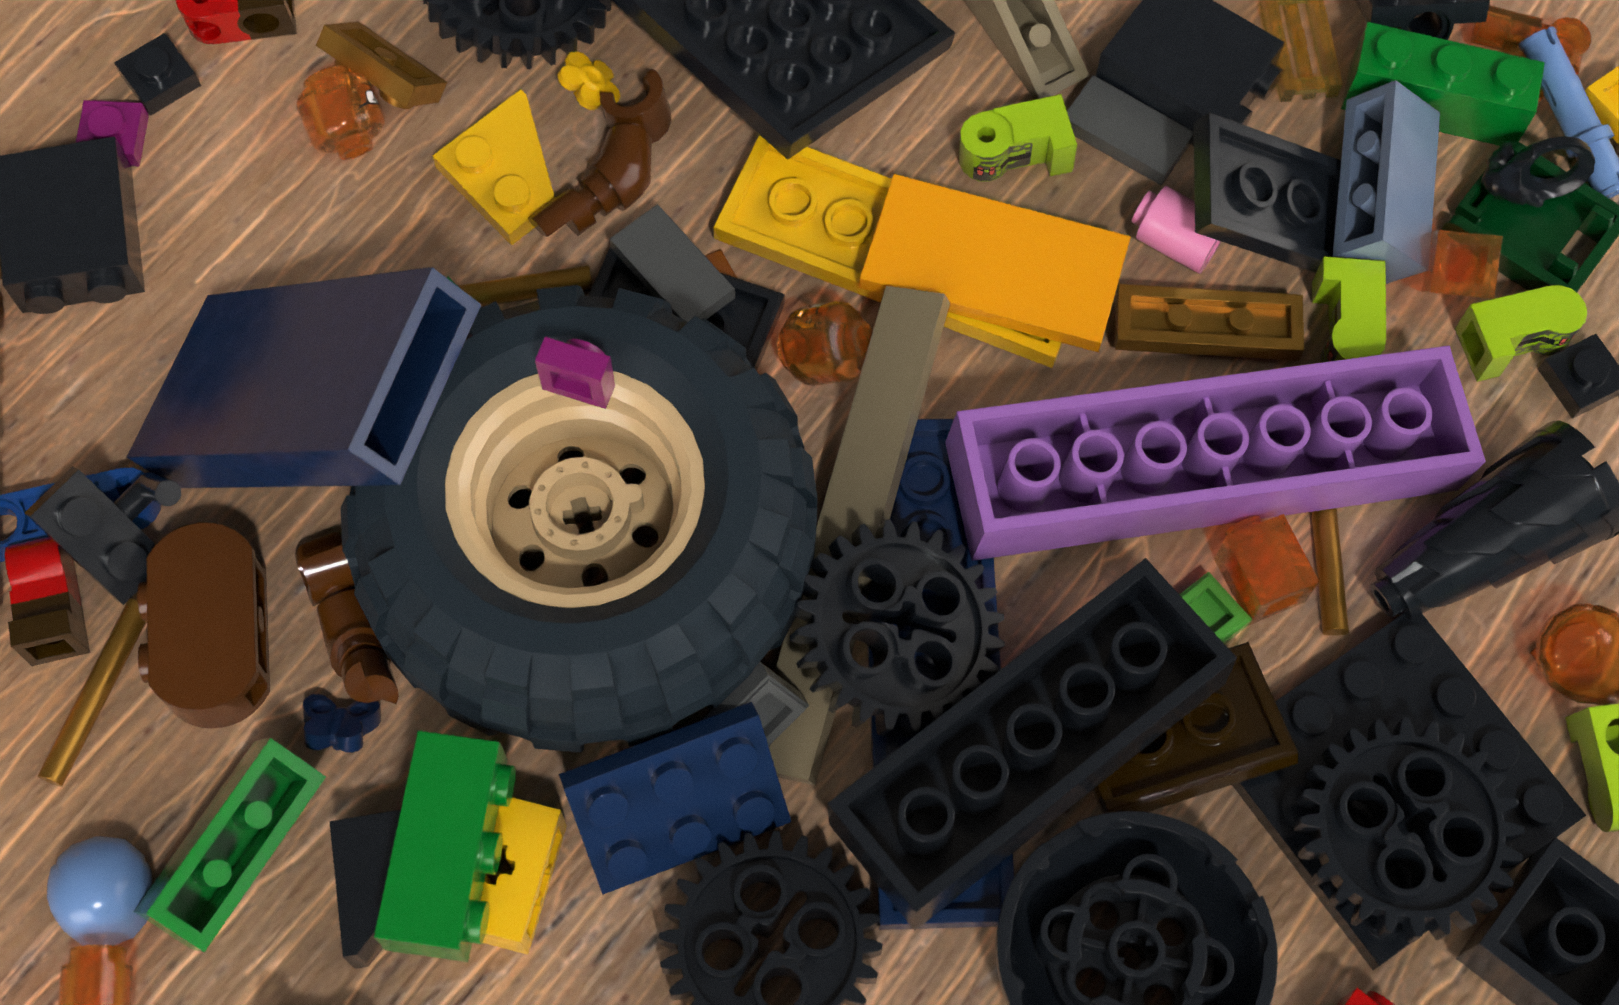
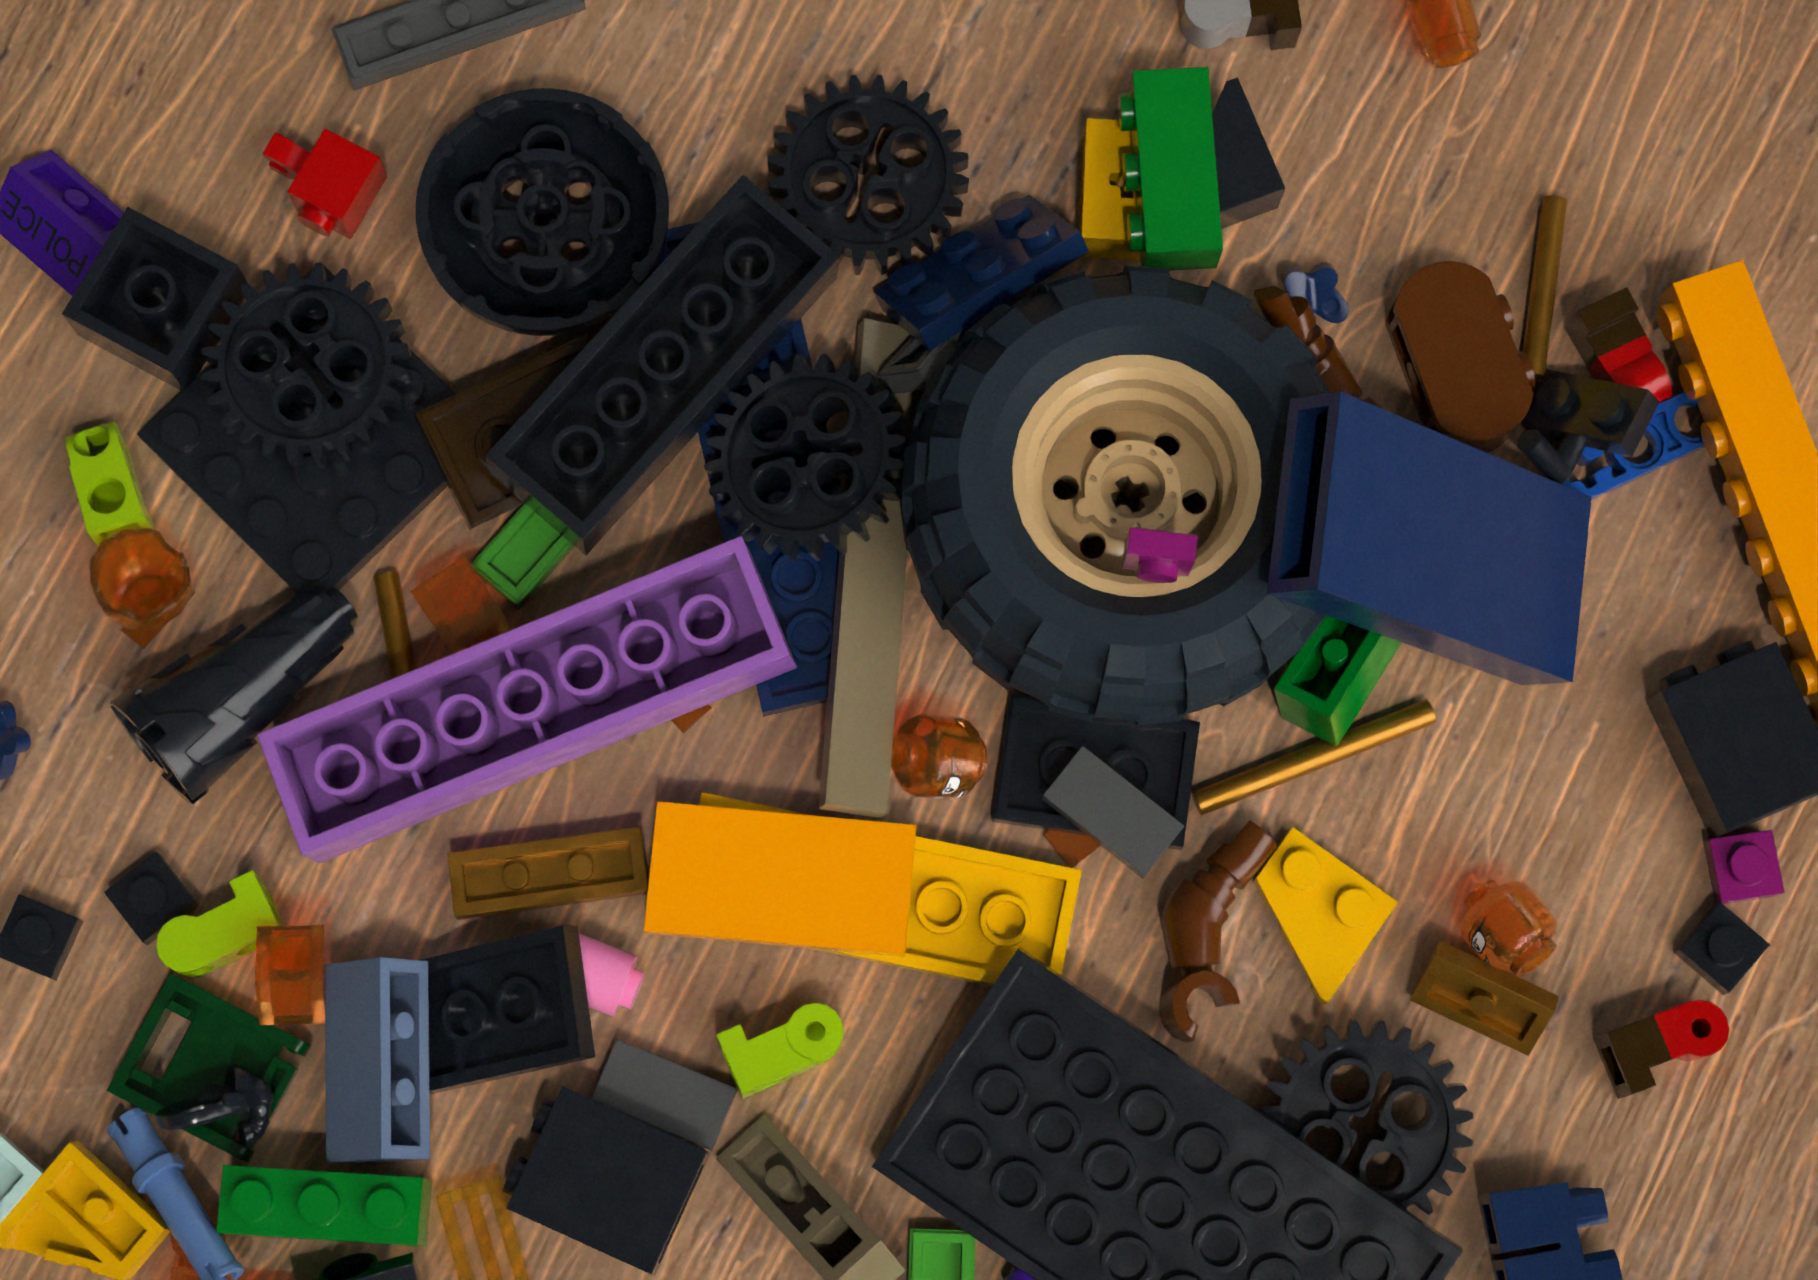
camera: 165 degrees right, 10 degrees up
(98, 889) = (1473, 113): medium blue hair -> none
(230, 844) = (1368, 157): green brick -> none
(587, 79) = (1257, 1029): yellow plant -> none
(1356, 306) = (393, 889): lime leg -> none

